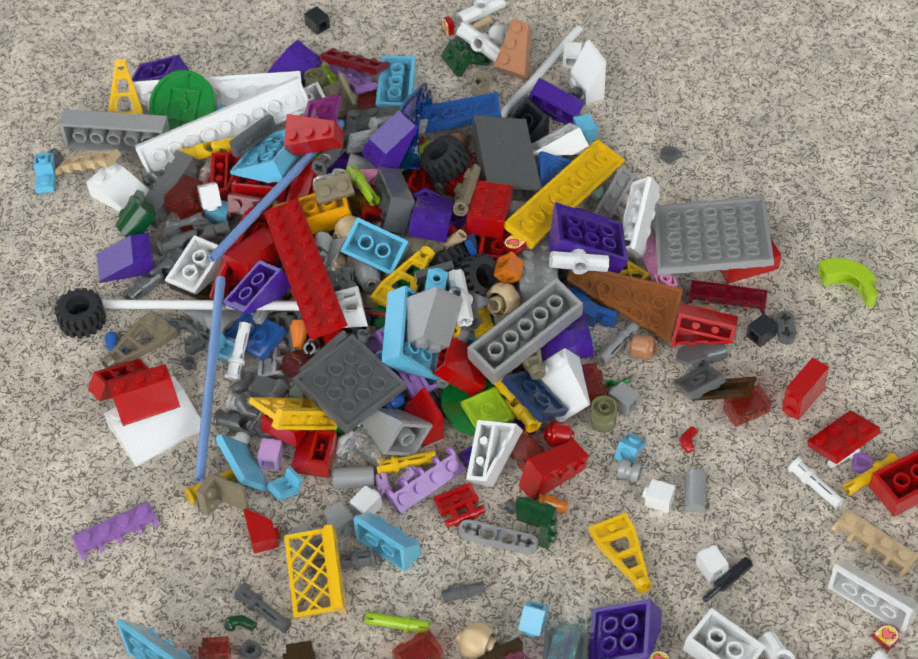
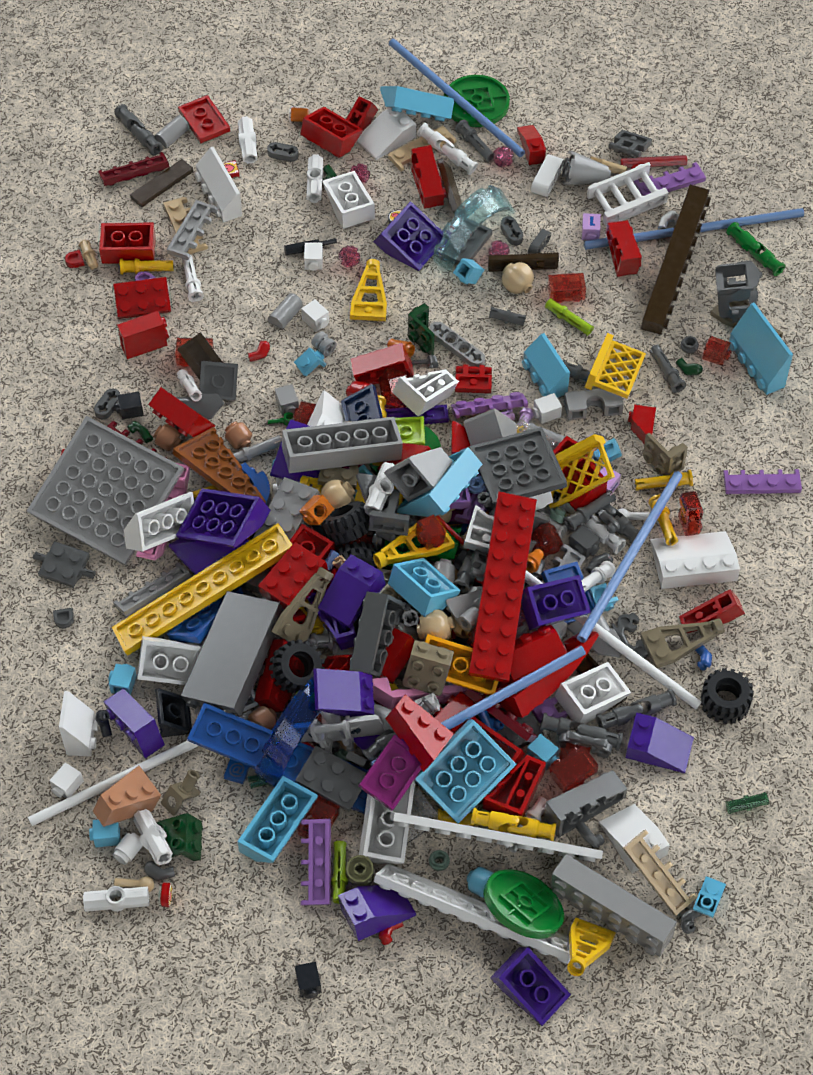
camera: 155 degrees left, 5 degrees up
(36, 248) = (747, 803): none -> clear green pin
(136, 215) = (632, 779): dark green brick -> none
(144, 394) = (699, 557): red slope -> none
(171, 447) = (690, 513): none -> clear red brick
(185, 362) = (643, 609): dark grey hand -> none
(193, 434) = (665, 523): none -> yellow pin
(209, 196) = (550, 745): white brick -> none
(242, 463) = (634, 477): medium azure tile -> none
(252, 135) = (471, 802): dark grey plate -> none
(341, 87) = (345, 834): dark tan bracket -> none
(355, 62) = (309, 863): dark red hinge -> none
(359, 180) = (396, 672): lime pin -> none
(392, 279) = (430, 532): none -> clear red brick
(436, 278) = (398, 496): medium azure brick -> none
(514, 244) = (295, 534): tile -> none
(579, 261) = (268, 495): white piece -> none
(603, 414) = (312, 387): olive wheel -> none
(674, 579) = (349, 256): none -> clear pink gear
(703, 187) = (64, 564): none -> dark grey plate
(718, 359) = (187, 383): none -> white pin
(742, 314) = (143, 431): none -> dark green arm
(852, 273) = (20, 425): lime arch -> none
(858, 523) = (190, 229): none -> light grey hinge

